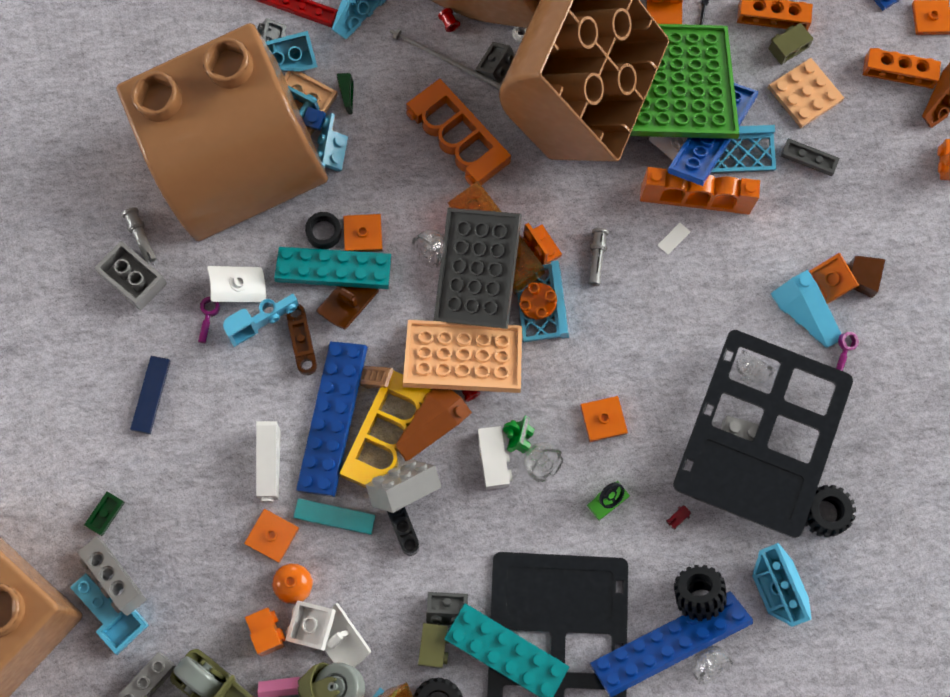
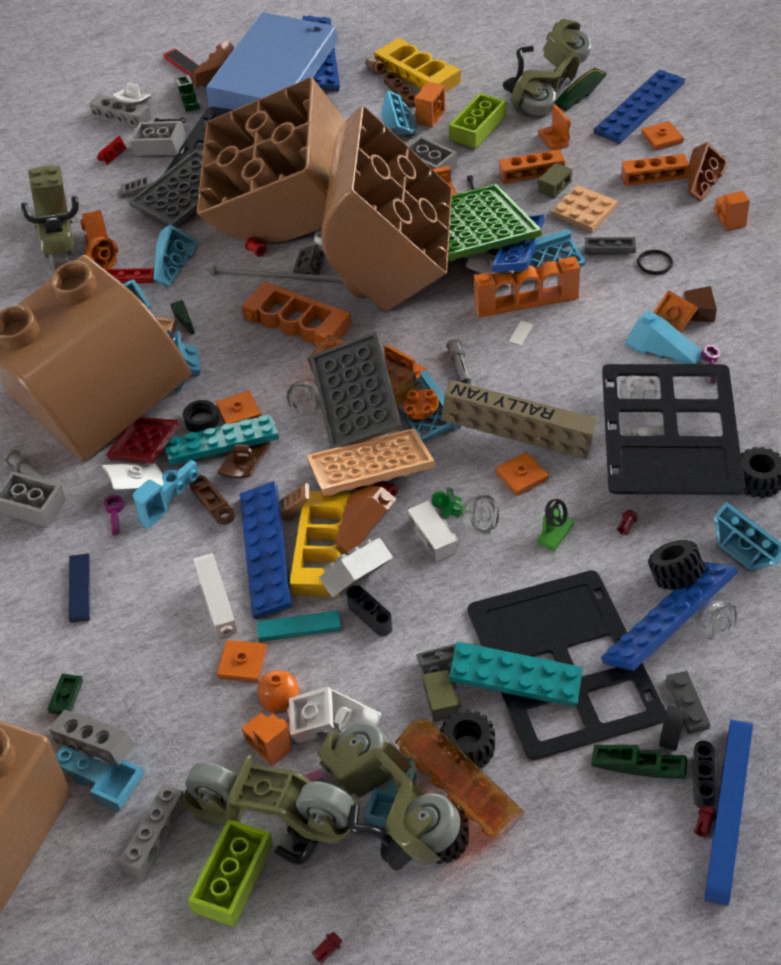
camera: 10 degrees left, 25 degrees down
(258, 243) = (143, 440): none -> dark red plate
(622, 365) = (518, 419): none -> dark tan brick
(850, 180) = (655, 272): none -> black tyre

